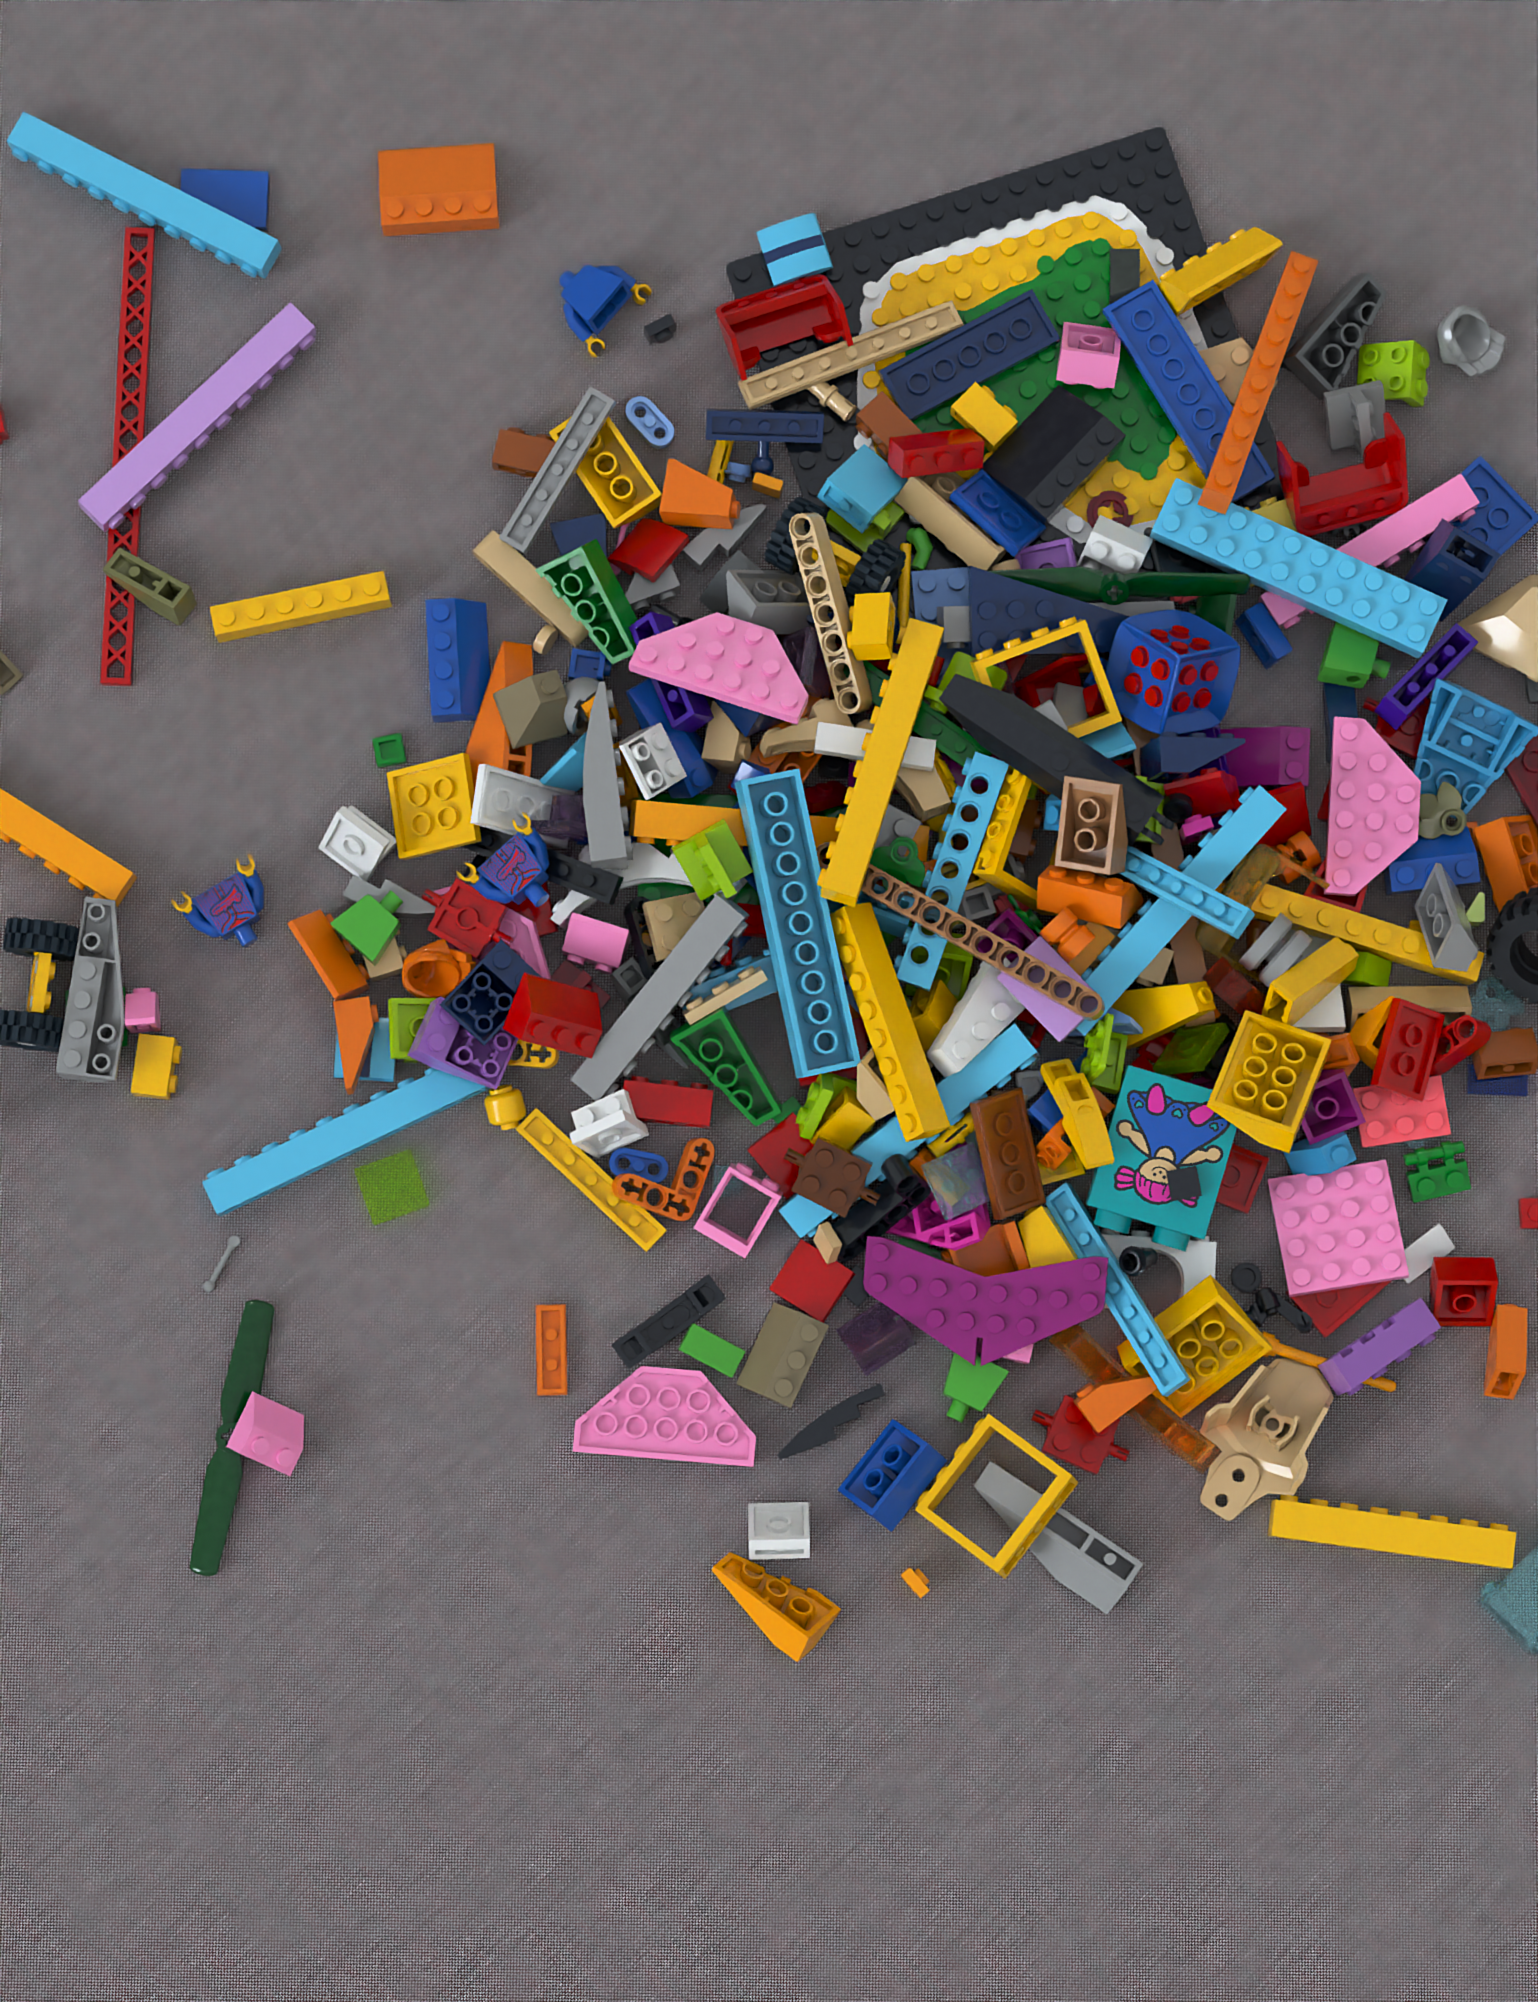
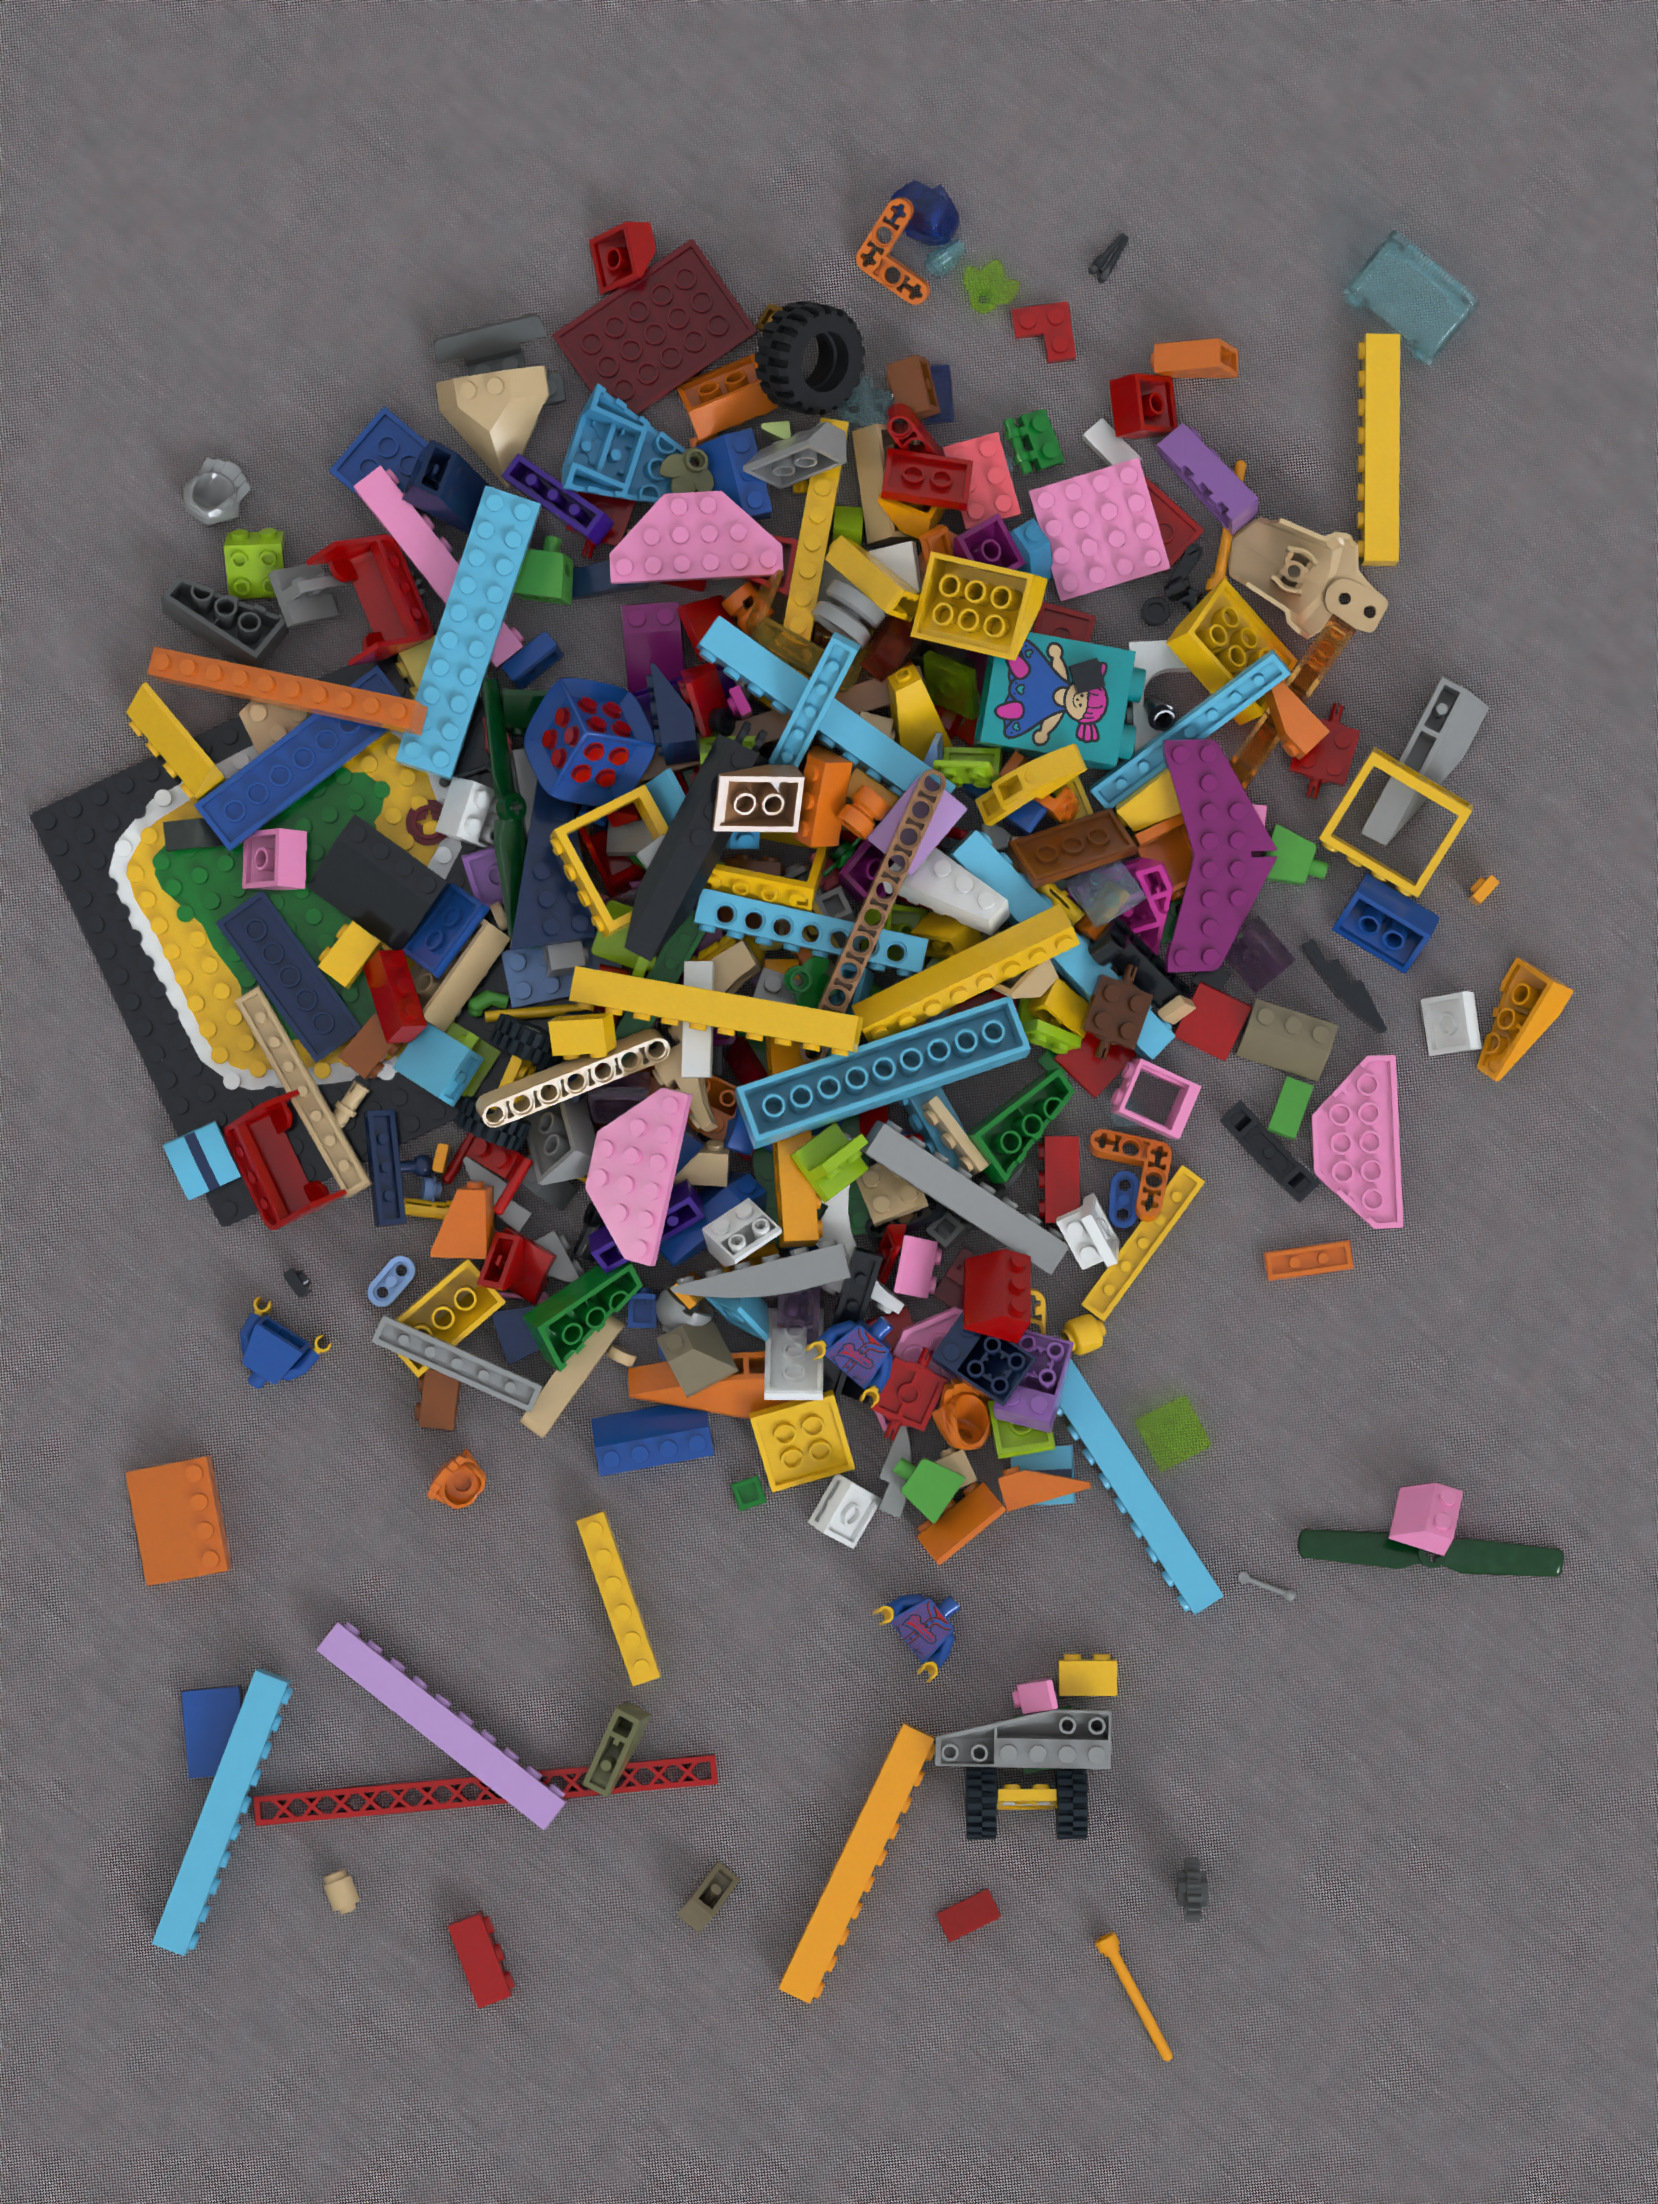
camera: 90 degrees left, 5 degrees up
(47, 301) = (341, 1891): none -> tan brick
(439, 460) = (457, 1481): none -> orange hair
(616, 916) = (890, 1247): none -> red slope
(652, 528) = (503, 1262): none -> red slope
(752, 544) = (498, 1159): none -> red plate

